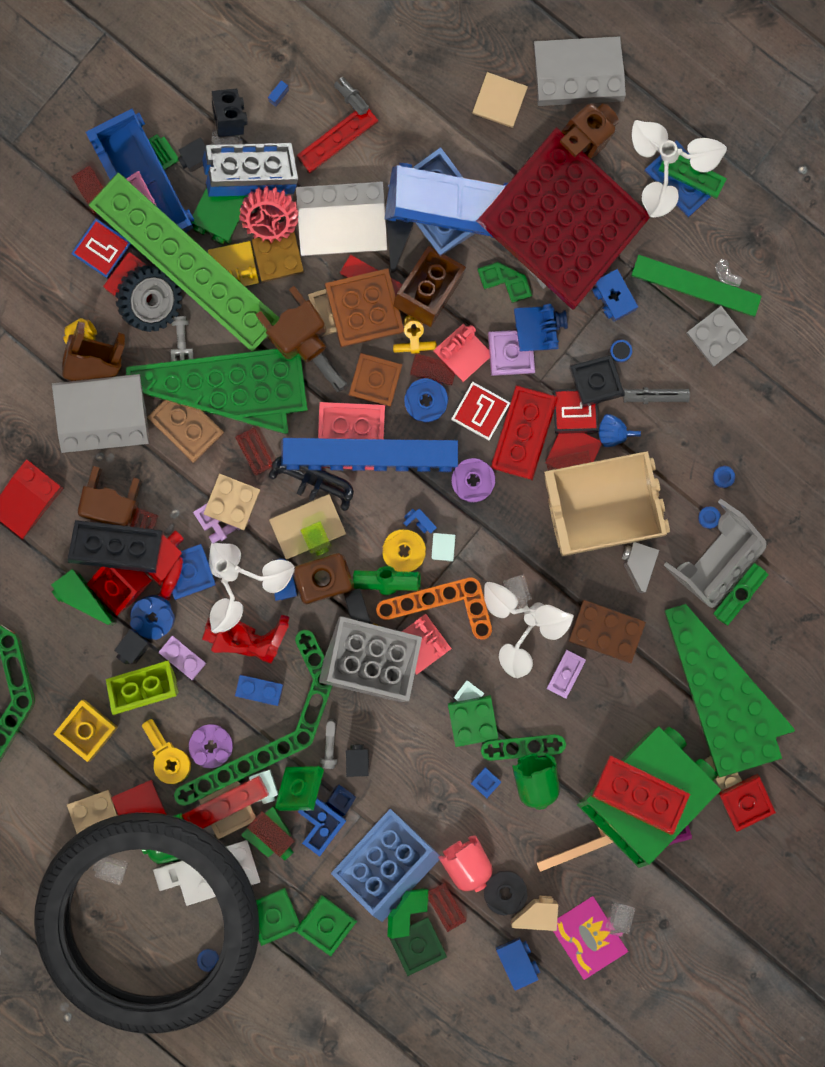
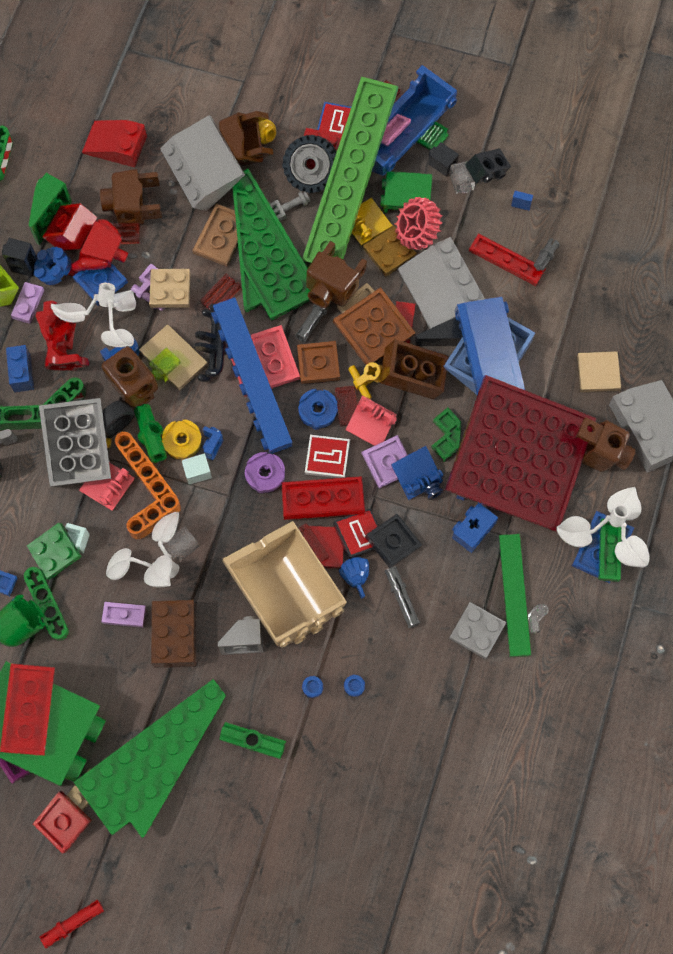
camera: 70 degrees right, 15 degrees down
(115, 546) = (94, 206): black tile -> none
(245, 167) = (447, 187): piece -> none
(621, 351) = (429, 552): black tile -> none
(725, 559) = (275, 714): light grey windscreen -> none

